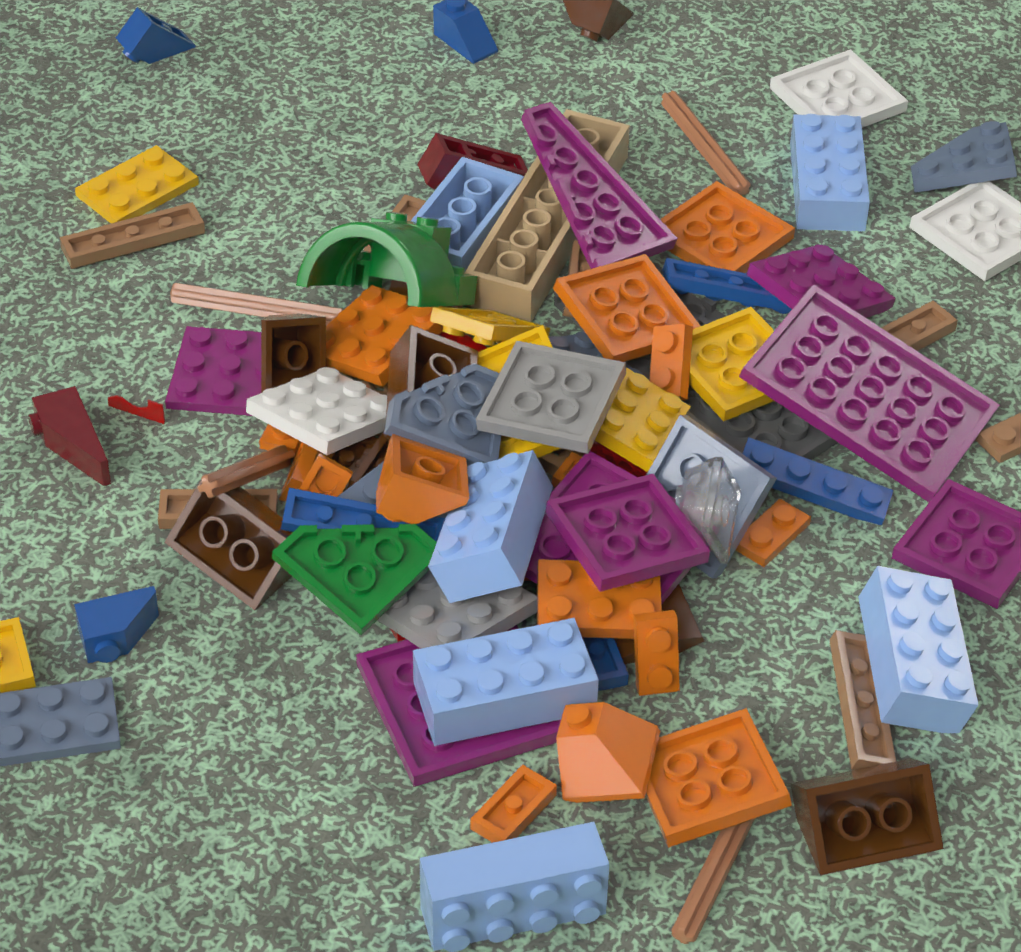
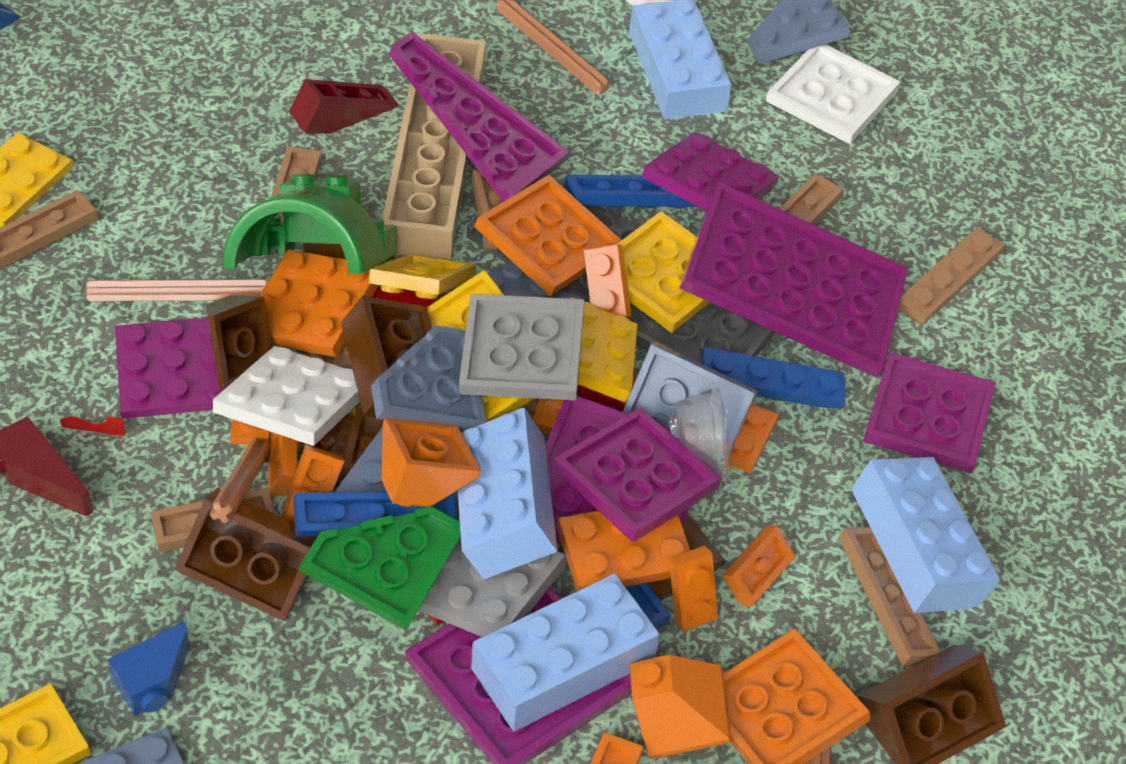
camera: 20 degrees left, 5 degrees up
(469, 204) = (362, 145): light blue brick -> none
(725, 230) = (603, 133): orange plate -> none
(736, 649) = (759, 566): none -> orange plate

